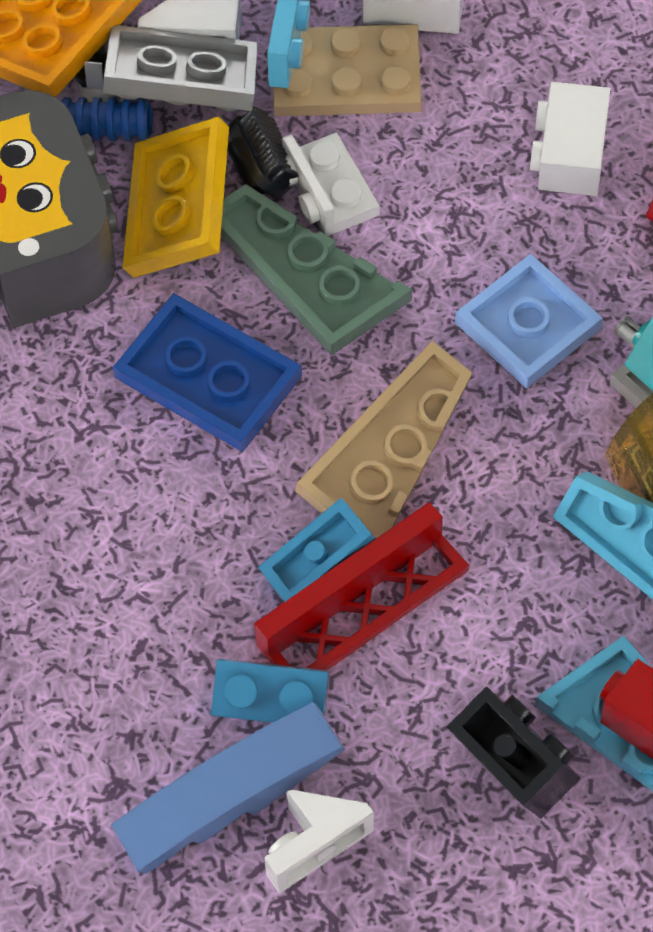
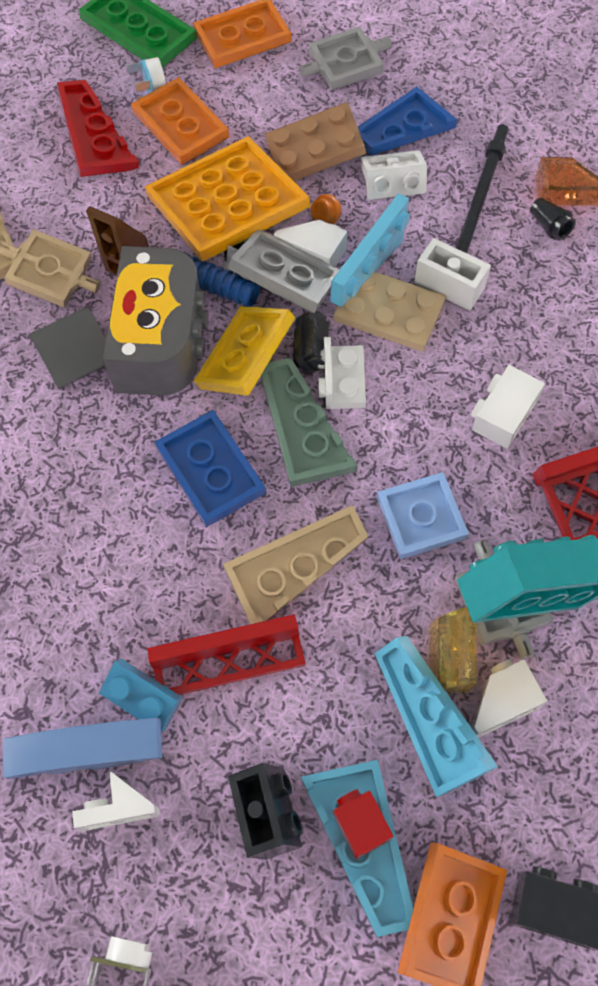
camera: 25 degrees right, 5 degrees up
(316, 550) = (213, 614): dark azure plate -> none

